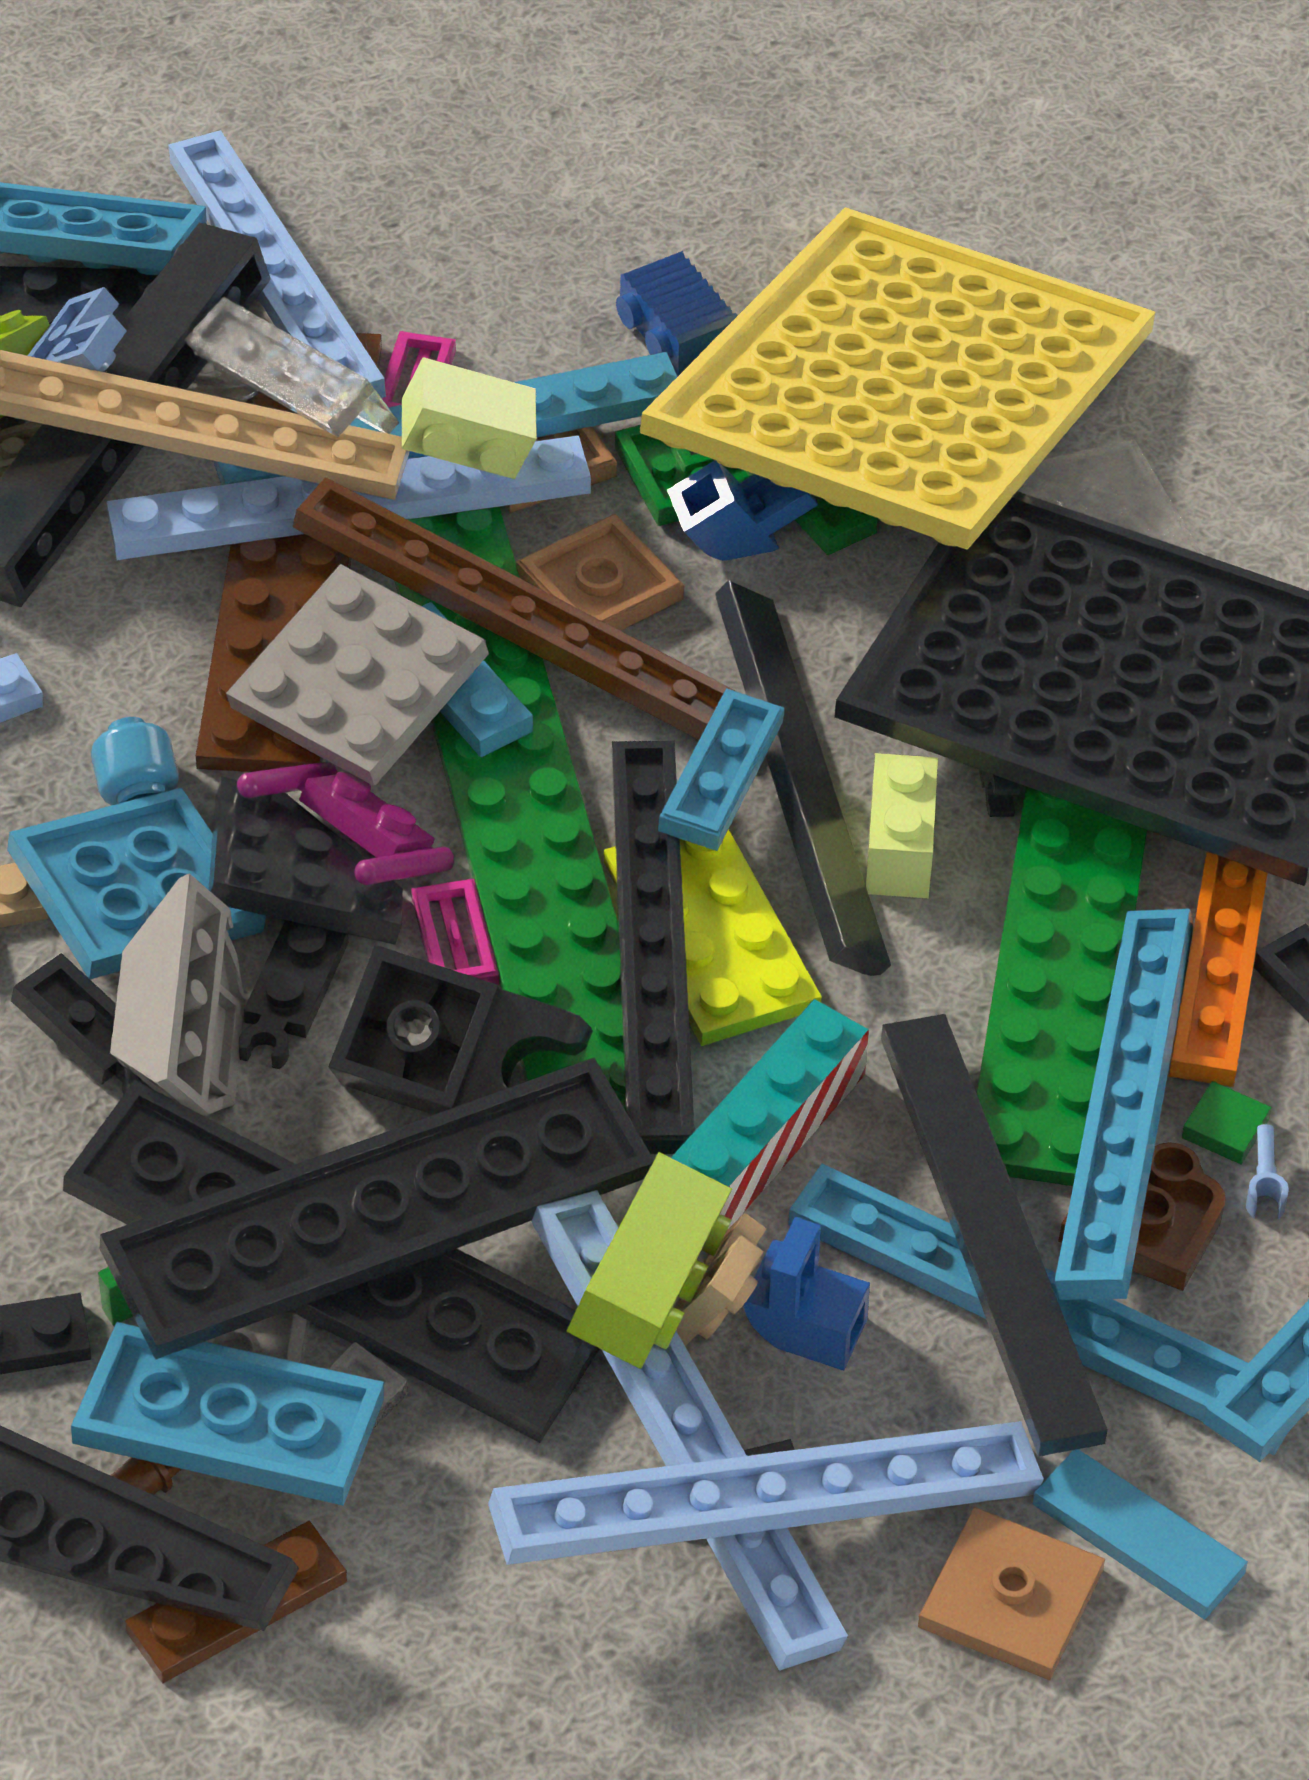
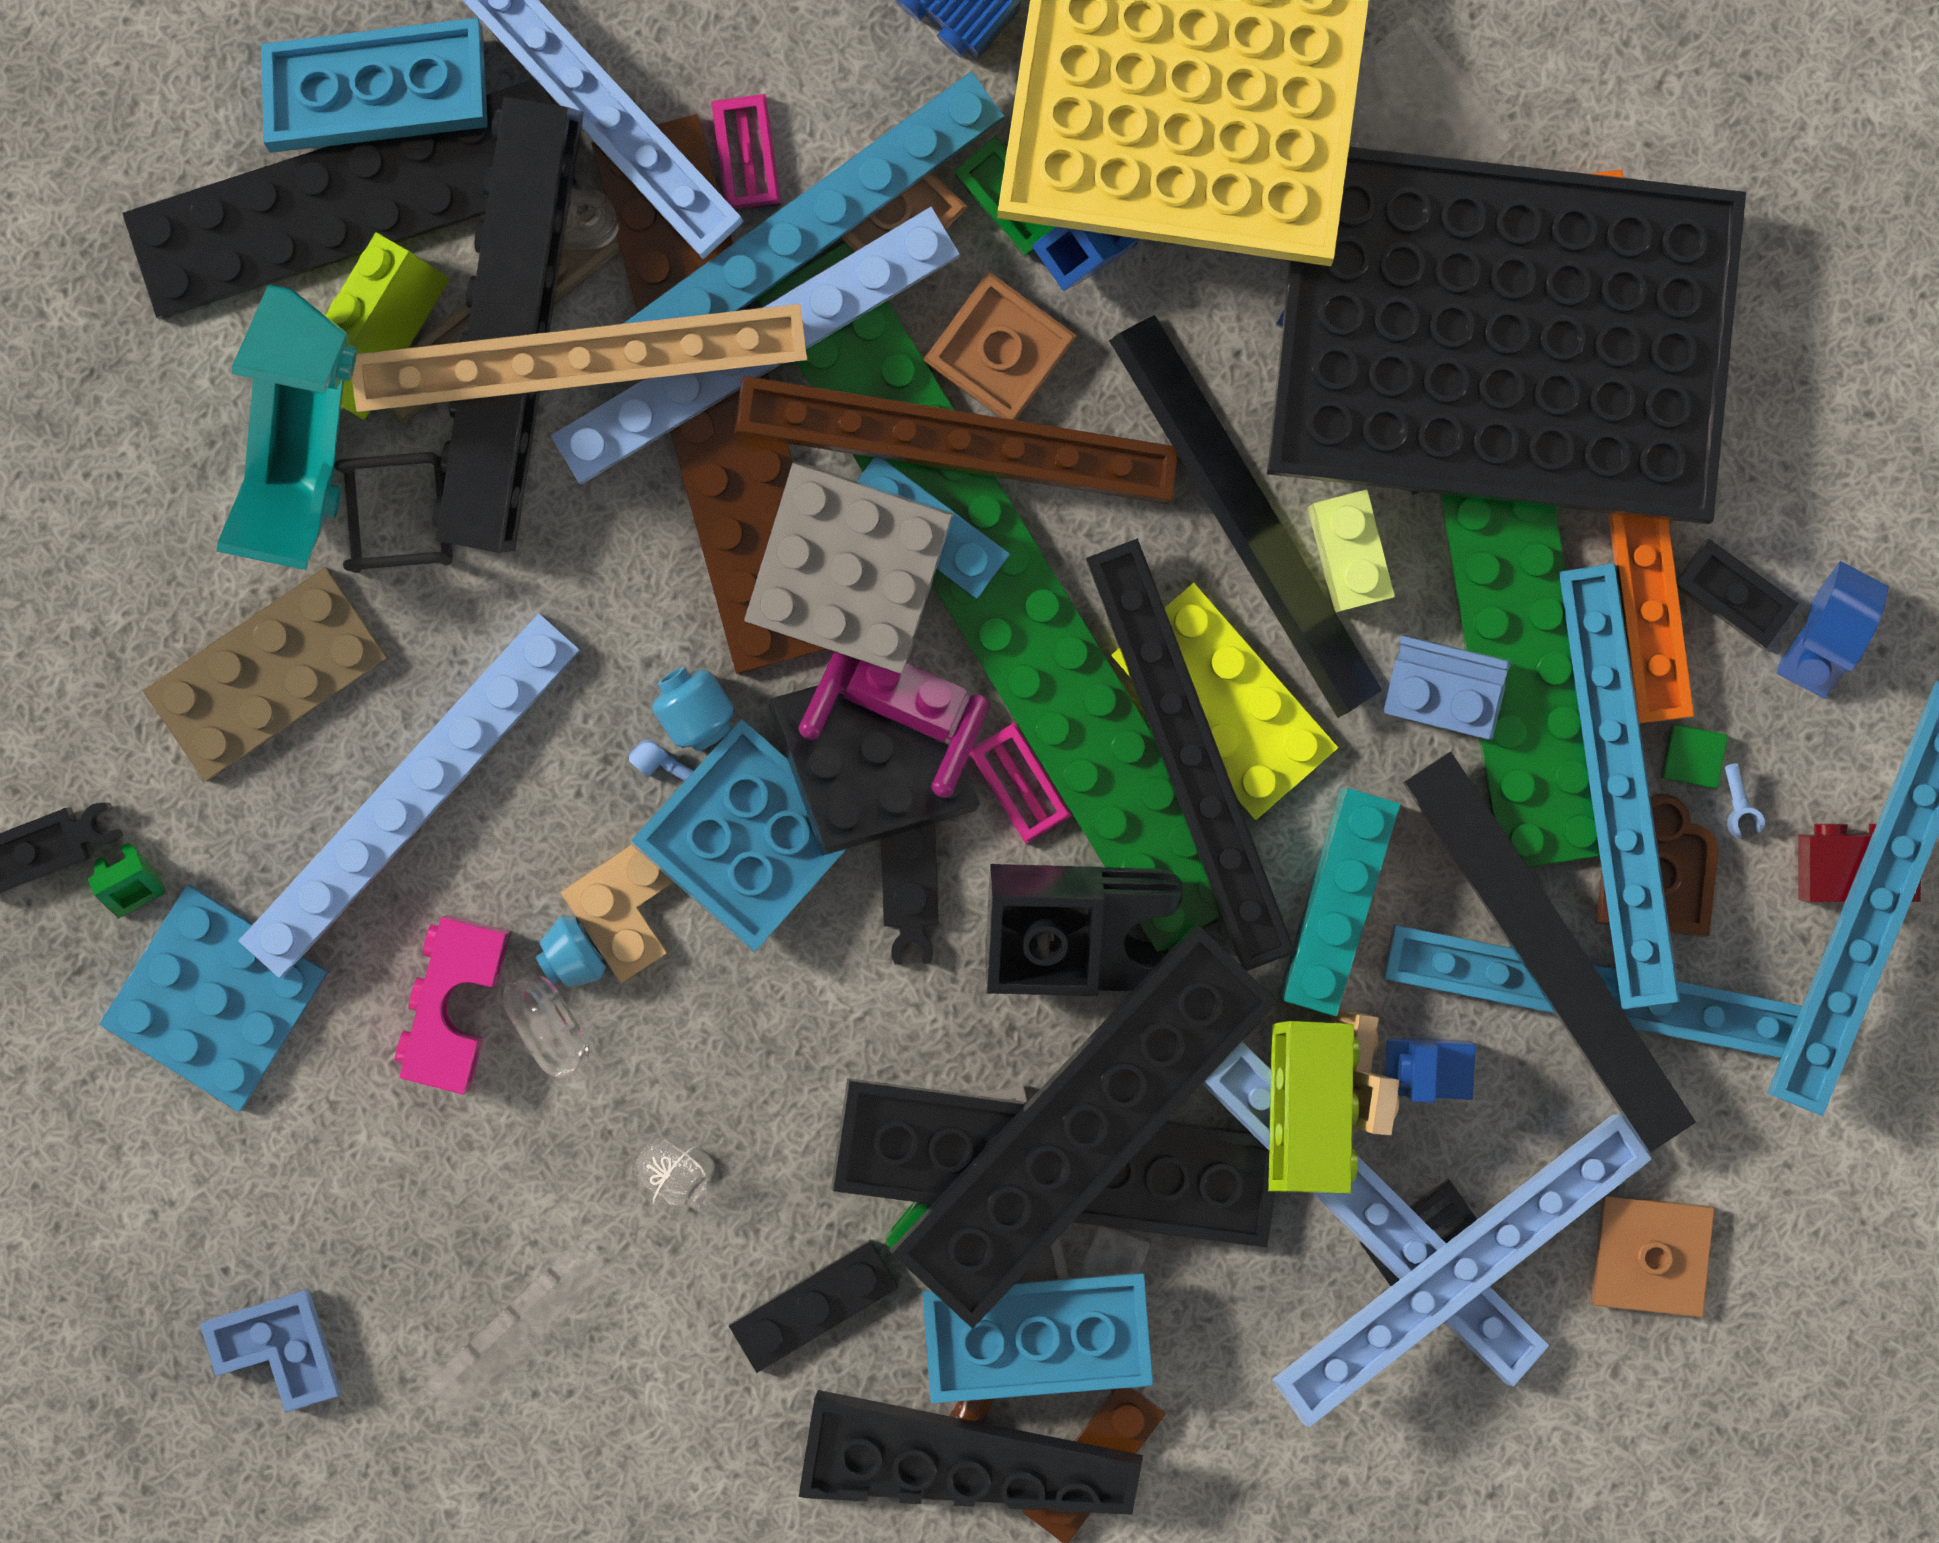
camera: 20 degrees left, 40 degrees up
(66, 799) = (649, 756): none -> light blue hand
(74, 1017) = (770, 991): black plate -> none
(83, 332) = (442, 291): medium blue plate -> none
(182, 1001) = (847, 976): light grey wedge -> none
(288, 370) = (663, 265): clear fence -> none
(468, 418) = (846, 269): yellowish green brick -> none
(721, 769) = (1191, 564): dark azure tile -> none
(964, 970) = (1447, 687): none -> medium blue plate
(1140, 1533) = (1736, 1173): dark azure tile -> none

